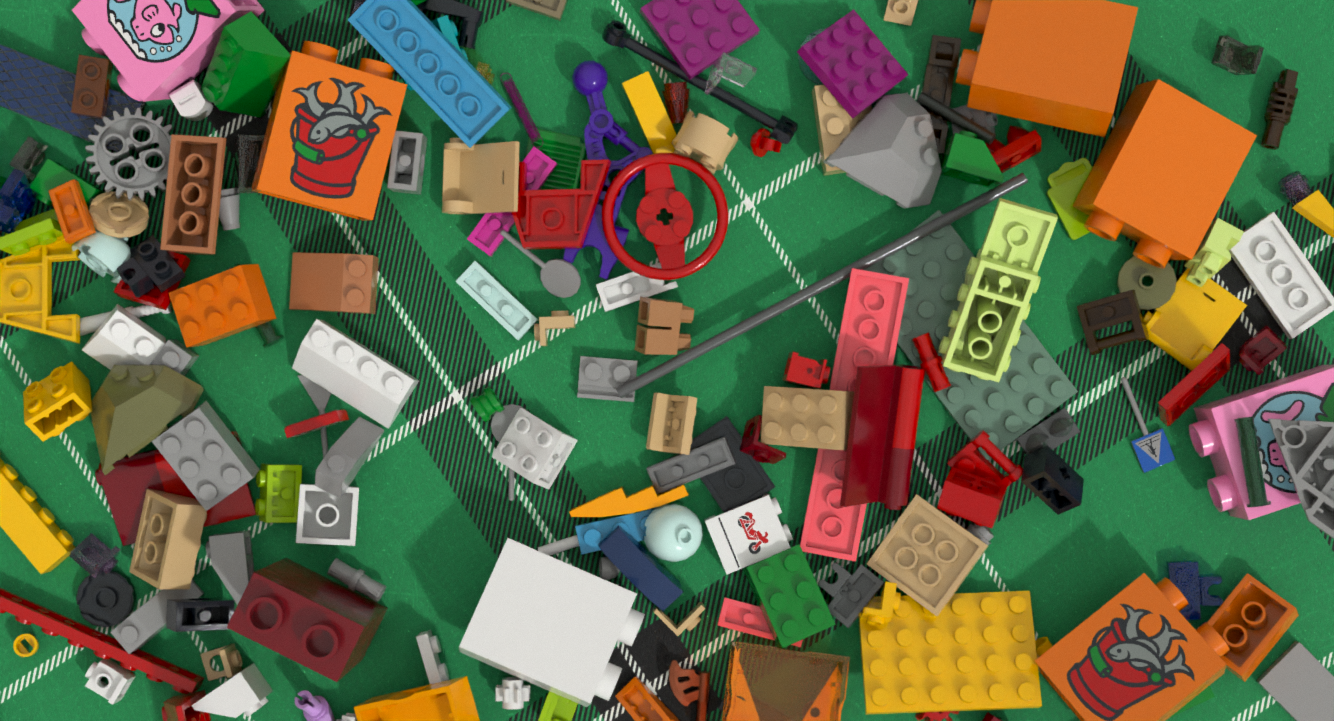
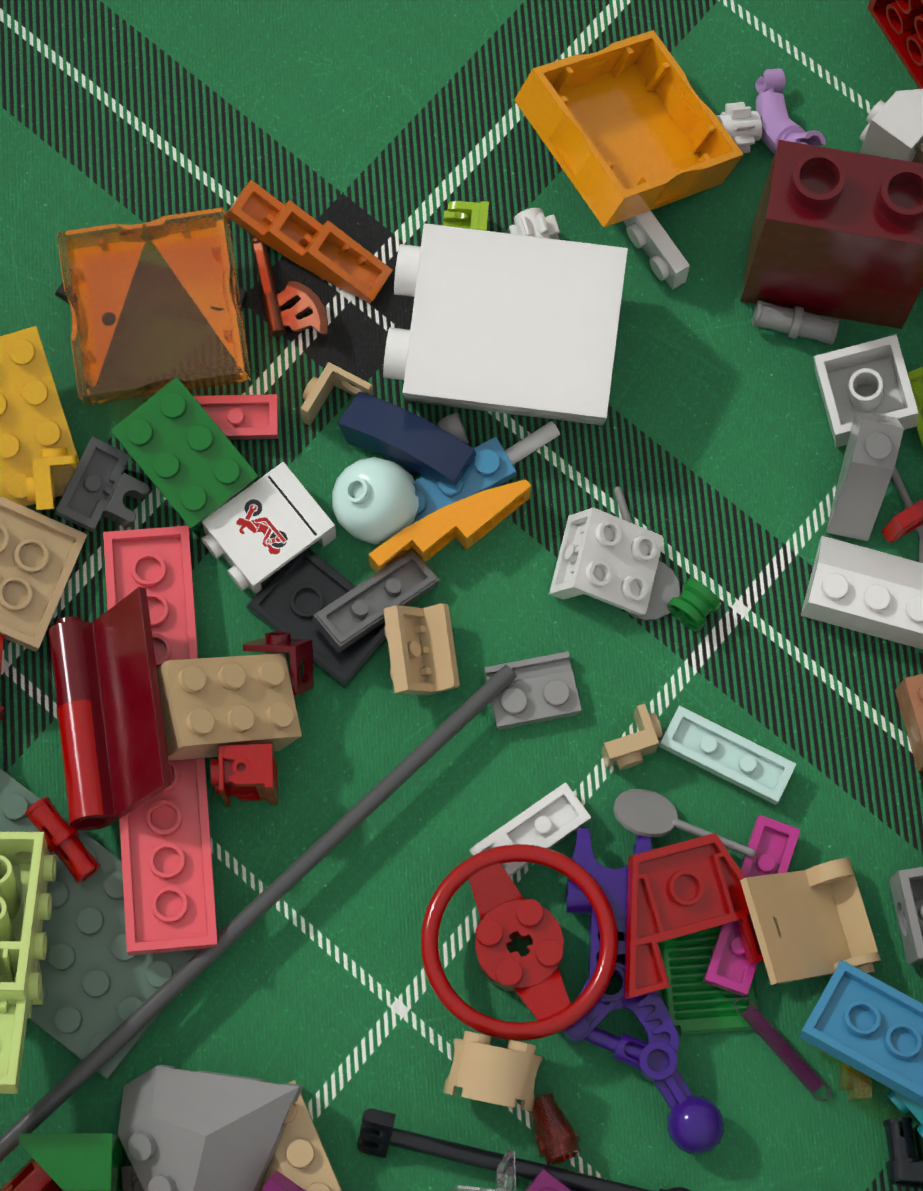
camera: 160 degrees right, 15 degrees down
(650, 113) = (585, 1095): yellow slope -> none
(663, 339) = (478, 781): medium nougat hips -> none
(762, 142) = (404, 1102): red plate -> none

